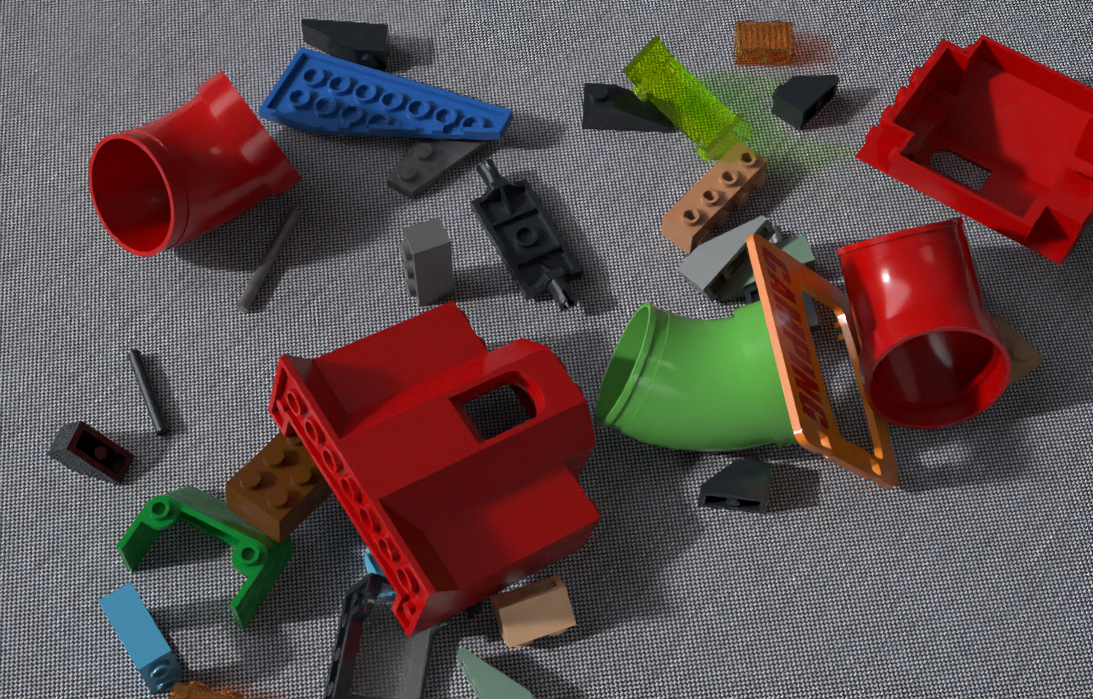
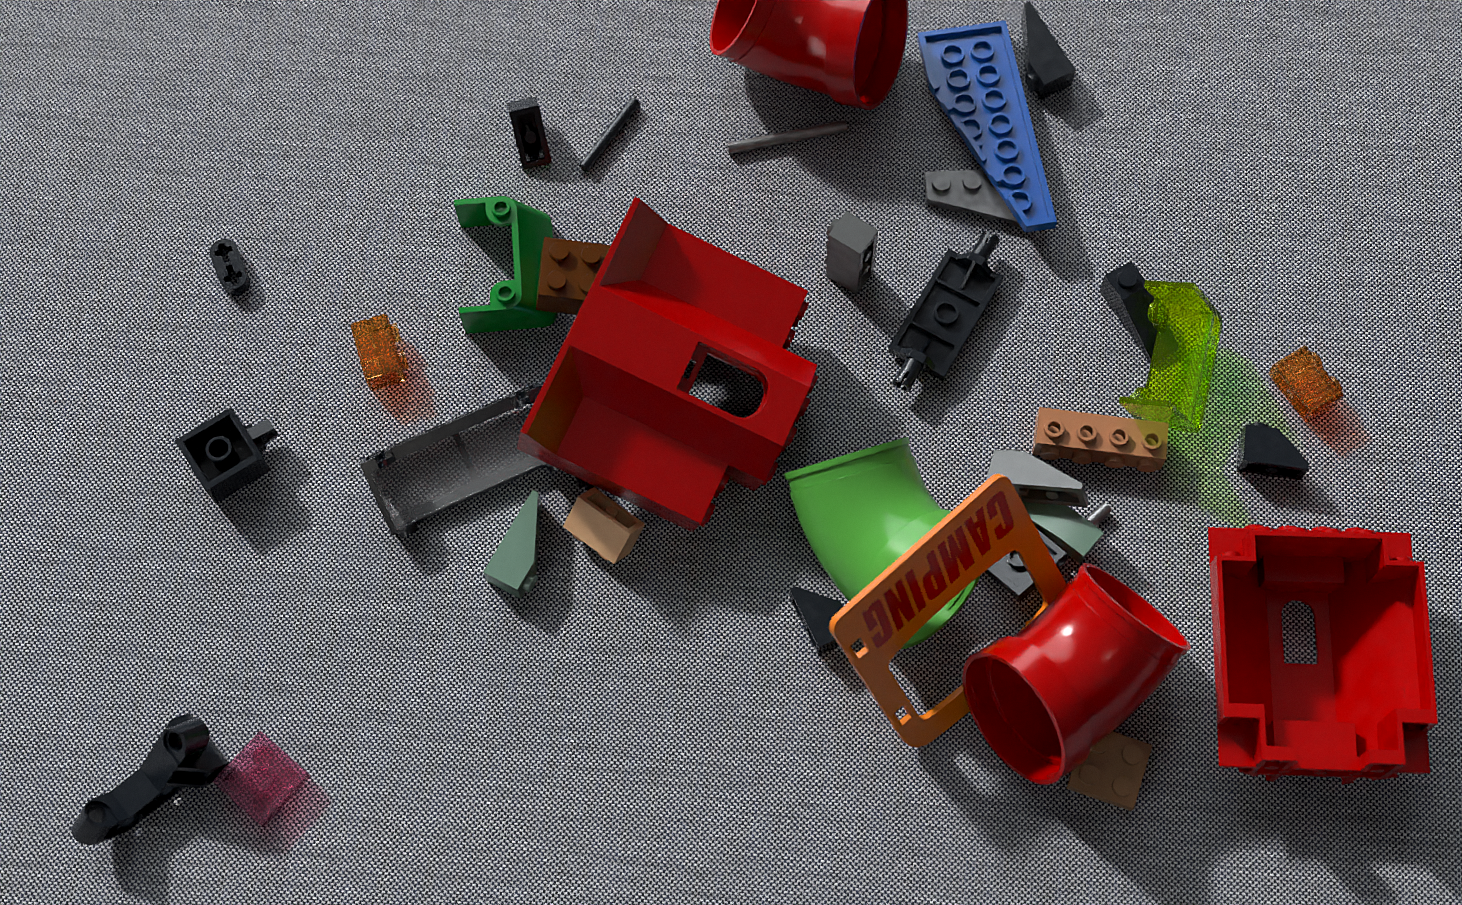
camera: 60 degrees right, 10 degrees up
(142, 639) = (402, 268): dark azure window -> none

